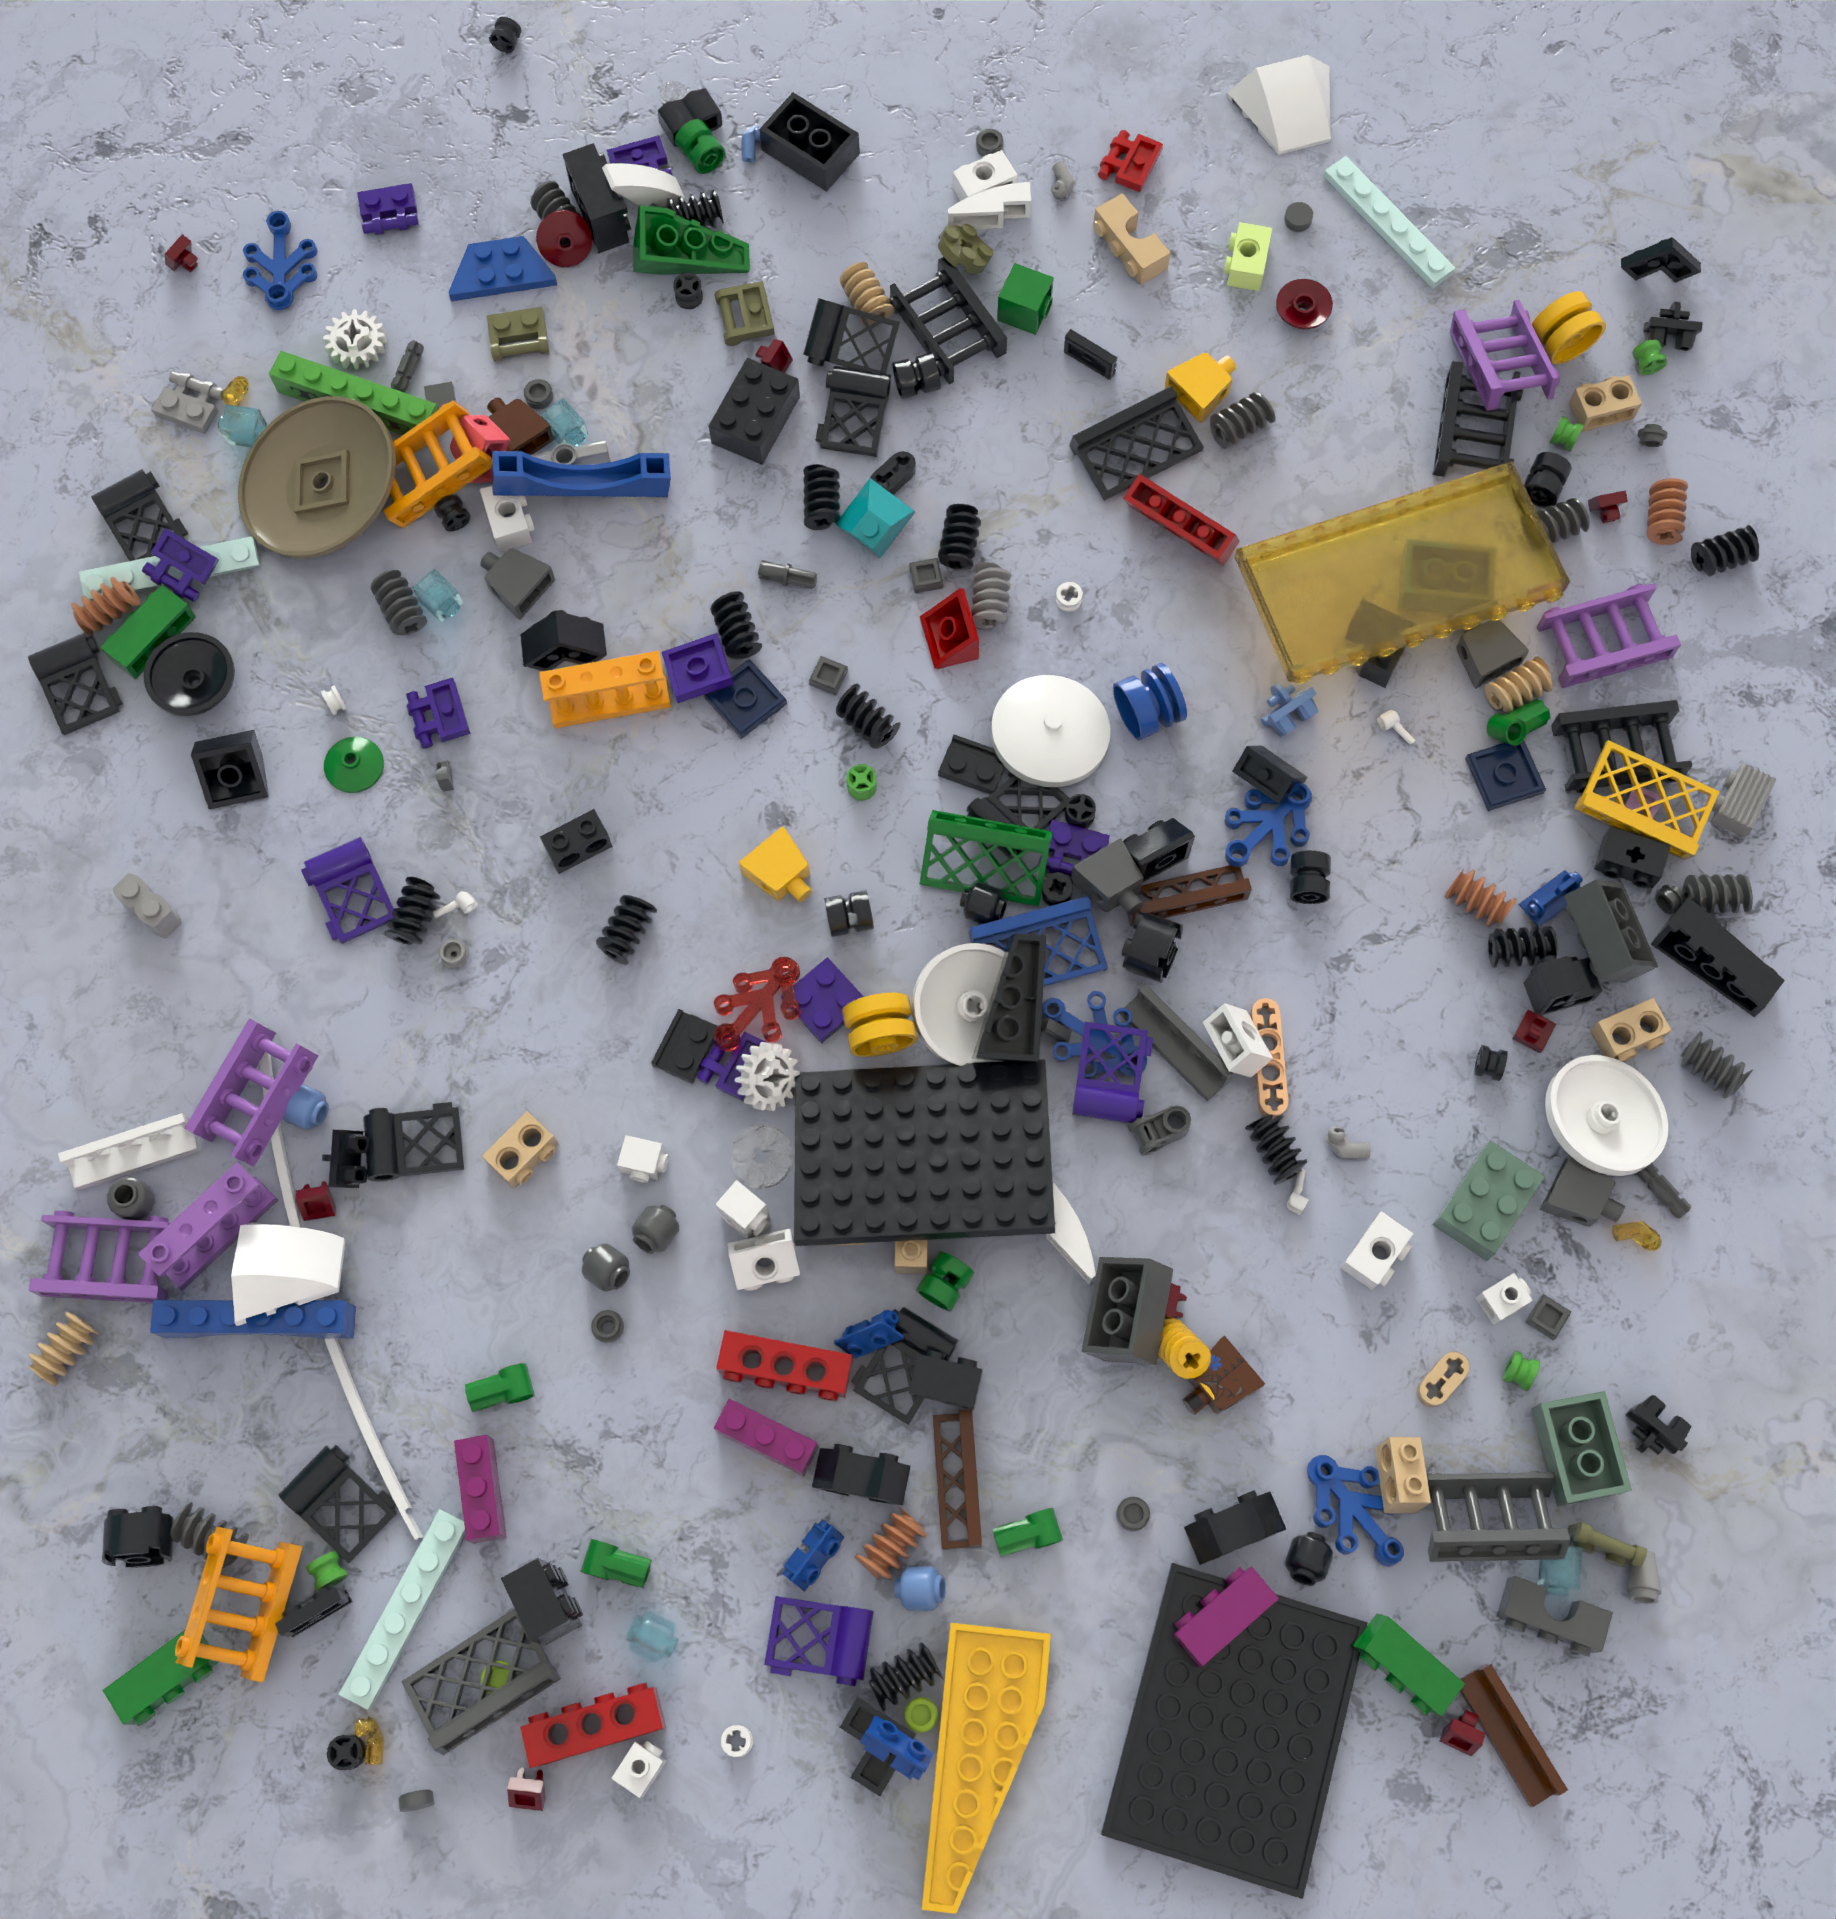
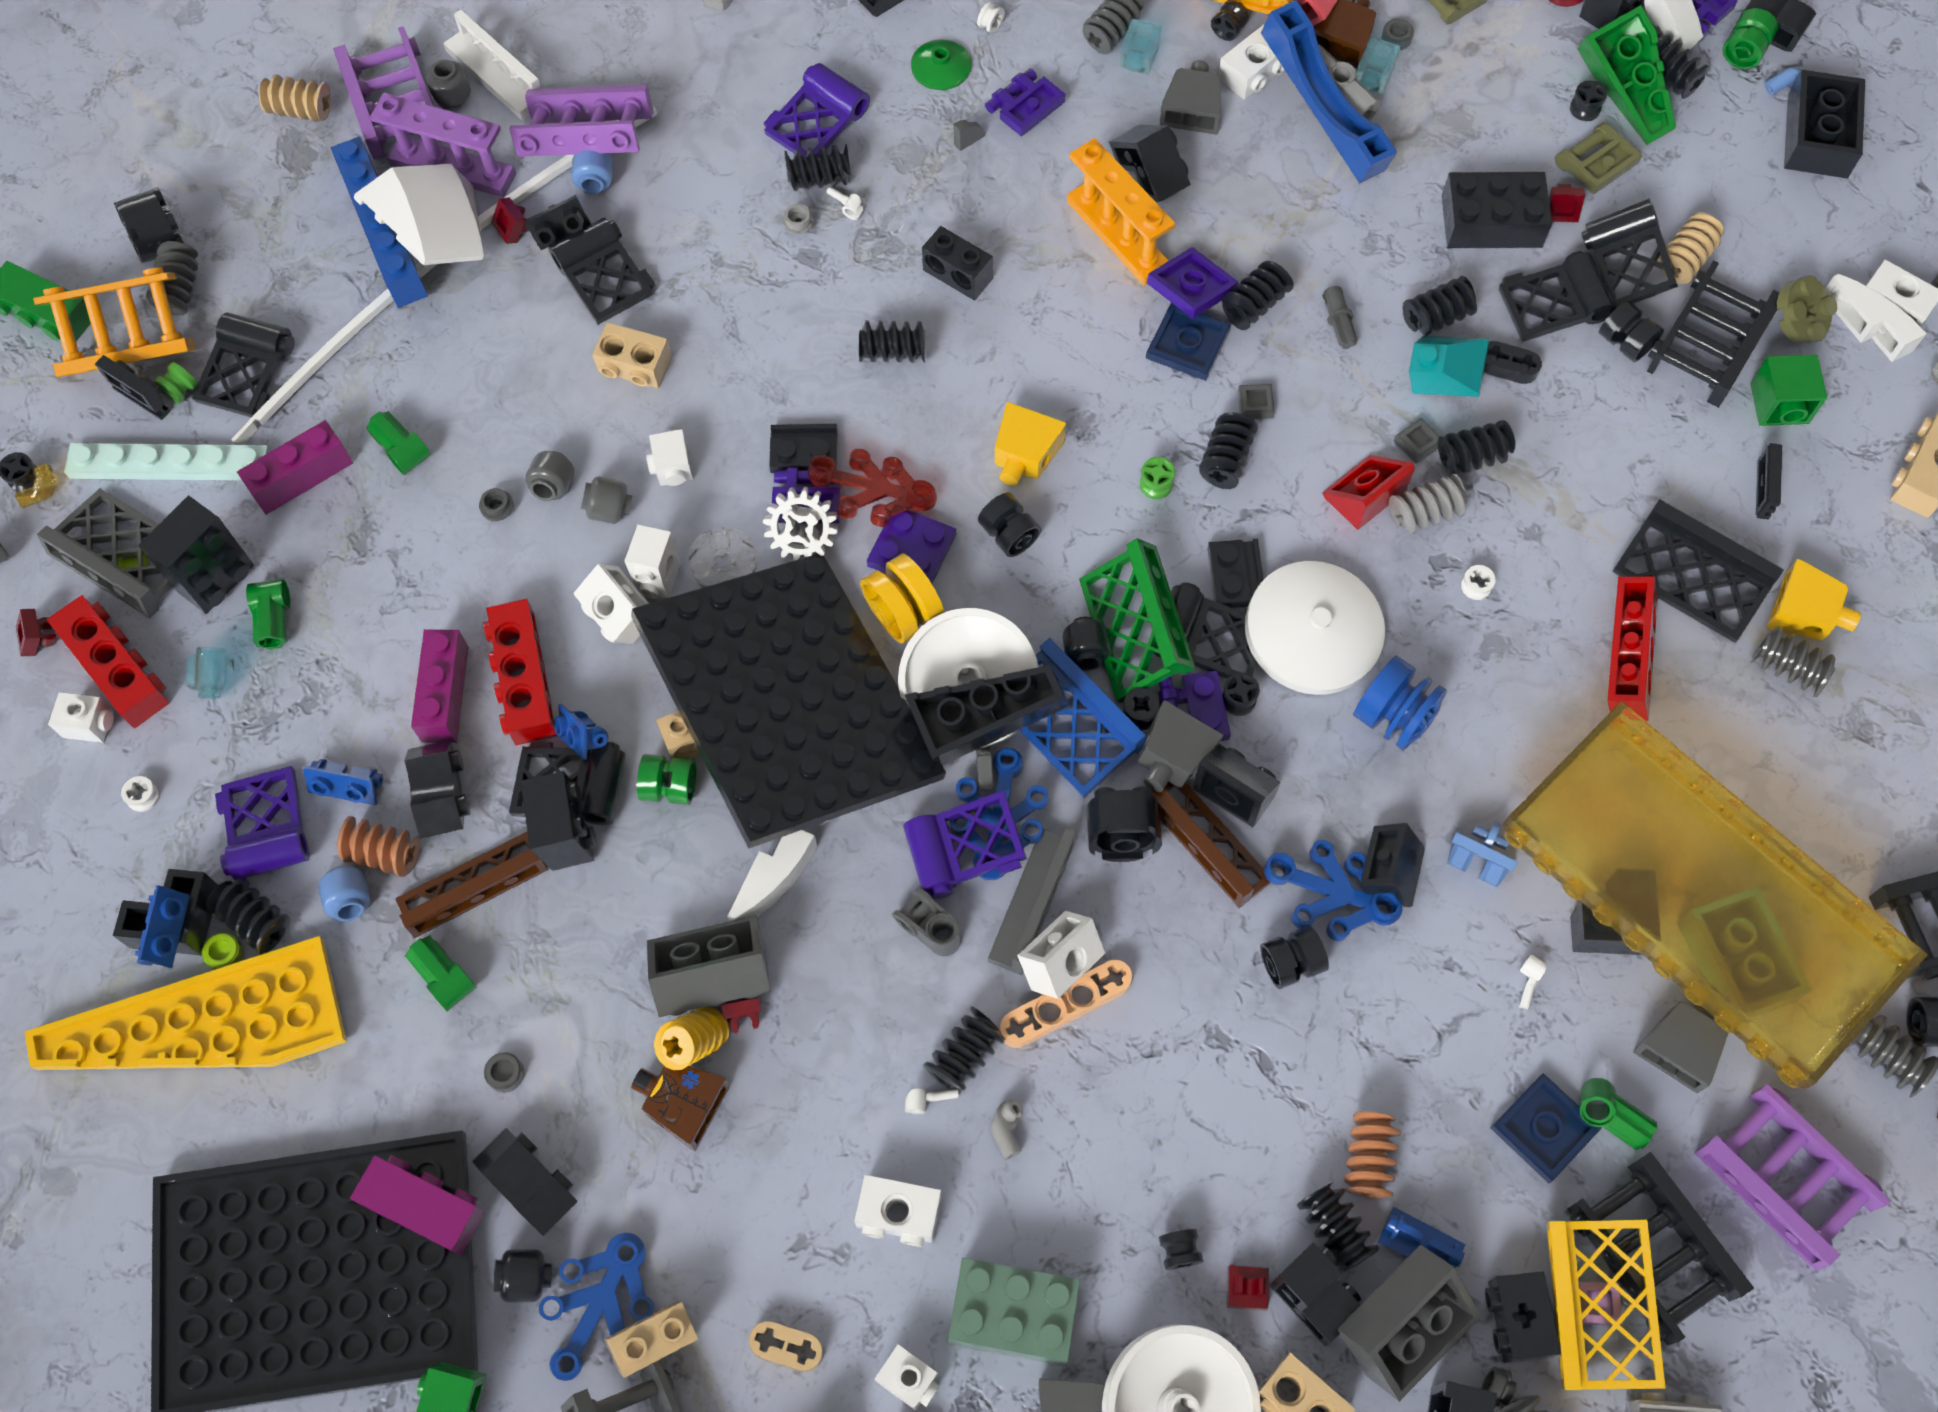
camera: 65 degrees right, 5 degrees down
(1519, 685) = (1661, 1096): tan piece -> none

